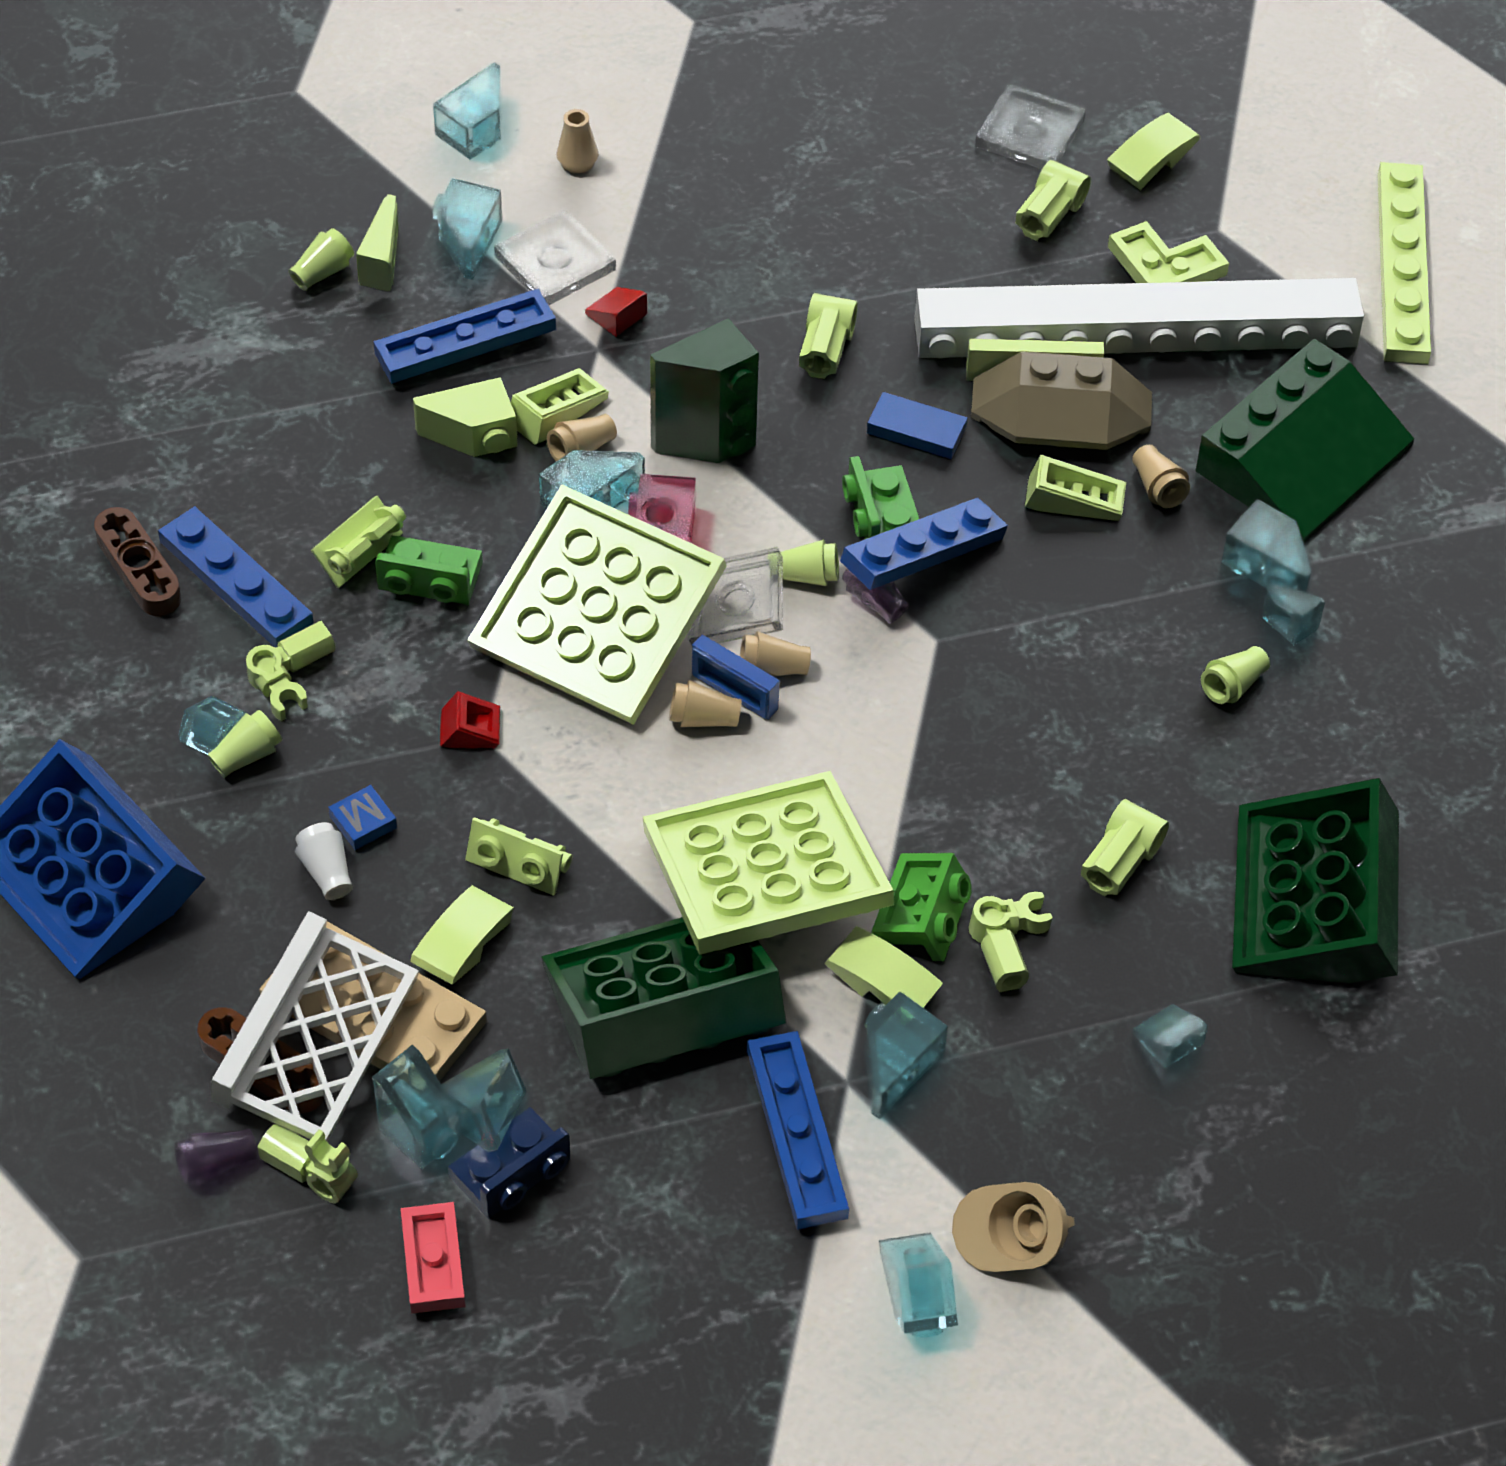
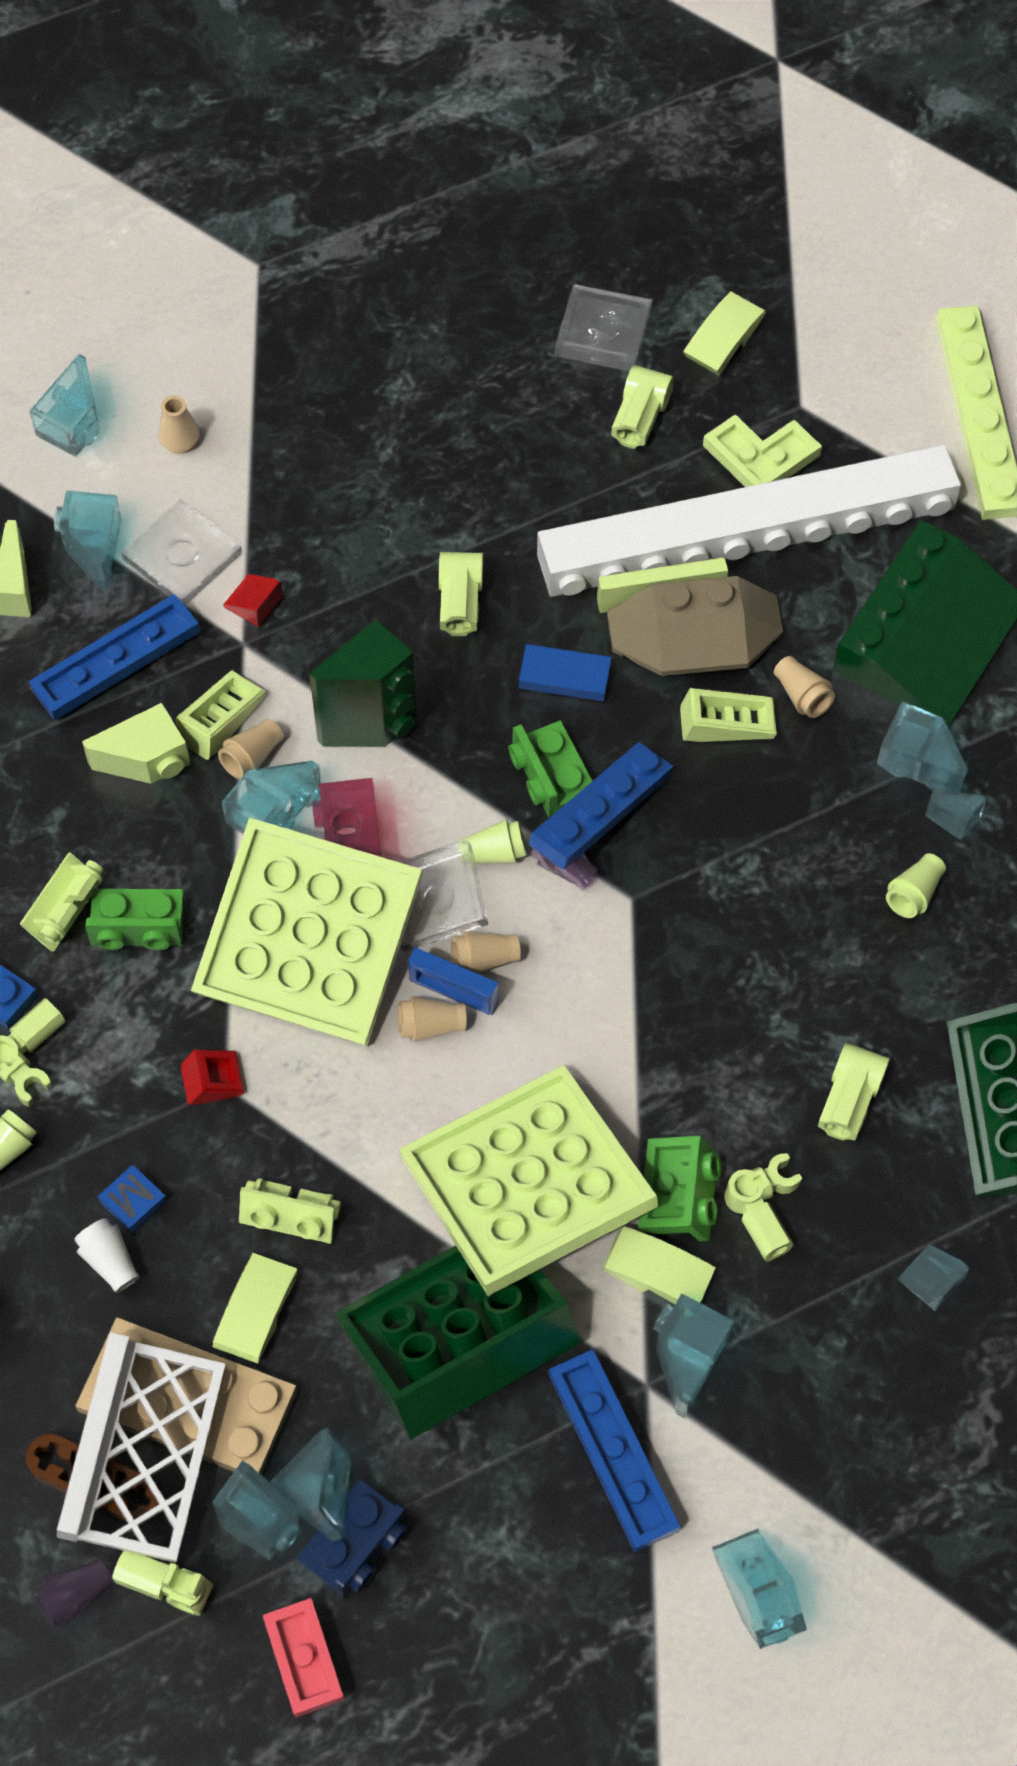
camera: 10 degrees left, 10 degrees up
(1010, 1227) = (834, 1516): tan piece -> none

